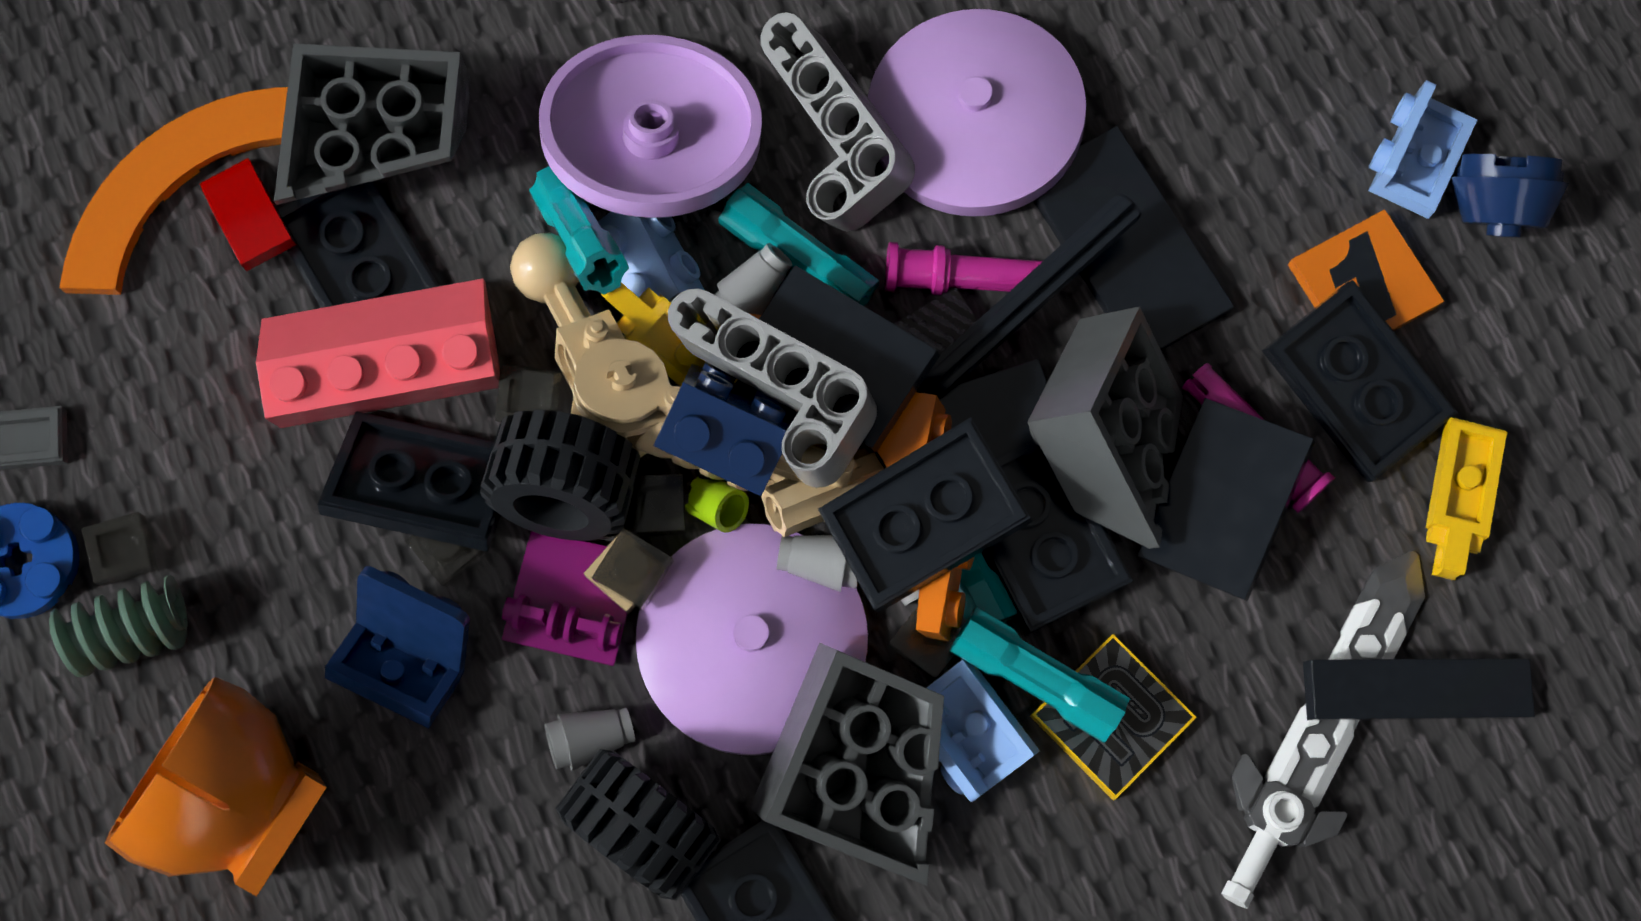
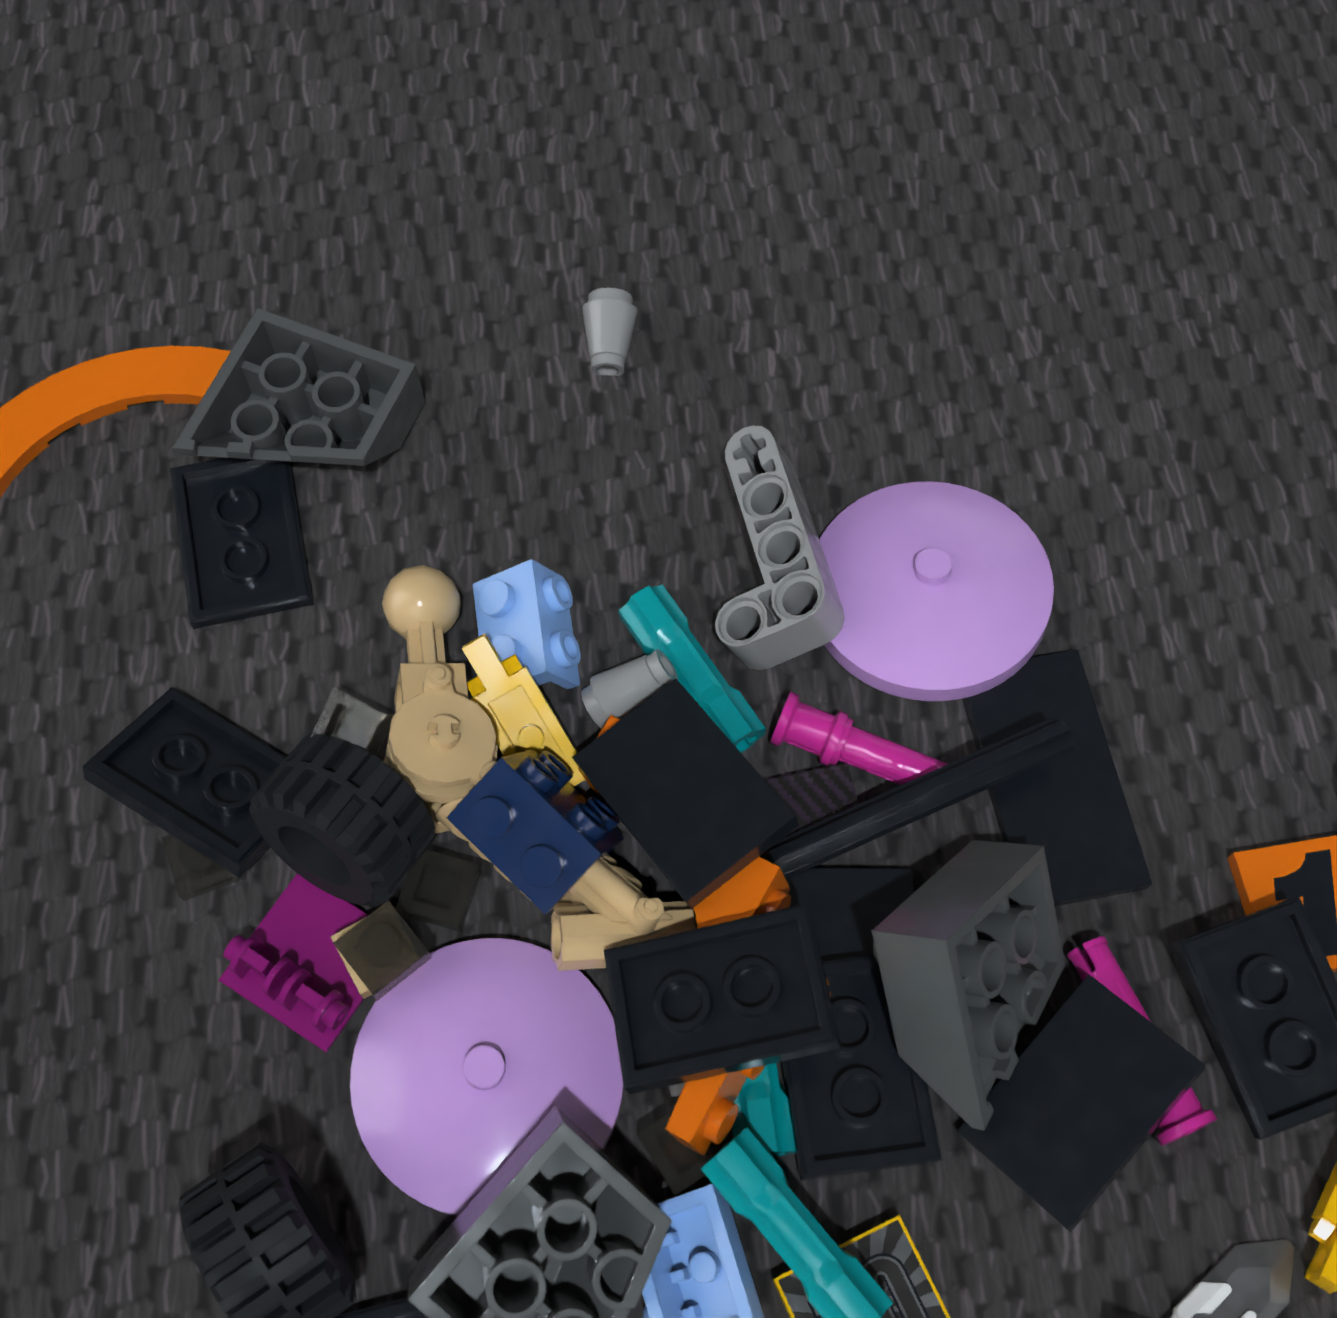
camera: 20 degrees right, 10 degrees down
(247, 214) = (146, 465): red slope -> none
(377, 354) = (214, 637): coral slope -> none
(402, 648) = (105, 957): dark blue bracket -> none
(580, 735) = (263, 1117): light grey cone -> none
(588, 247) = (466, 592): teal axle -> none
(650, 126) = (581, 497): lavender dish -> none
(717, 504) = (504, 911): lime hose -> none
(767, 372) = (602, 778): light grey beam -> none
(816, 560) = (583, 1008): light grey cone -> none

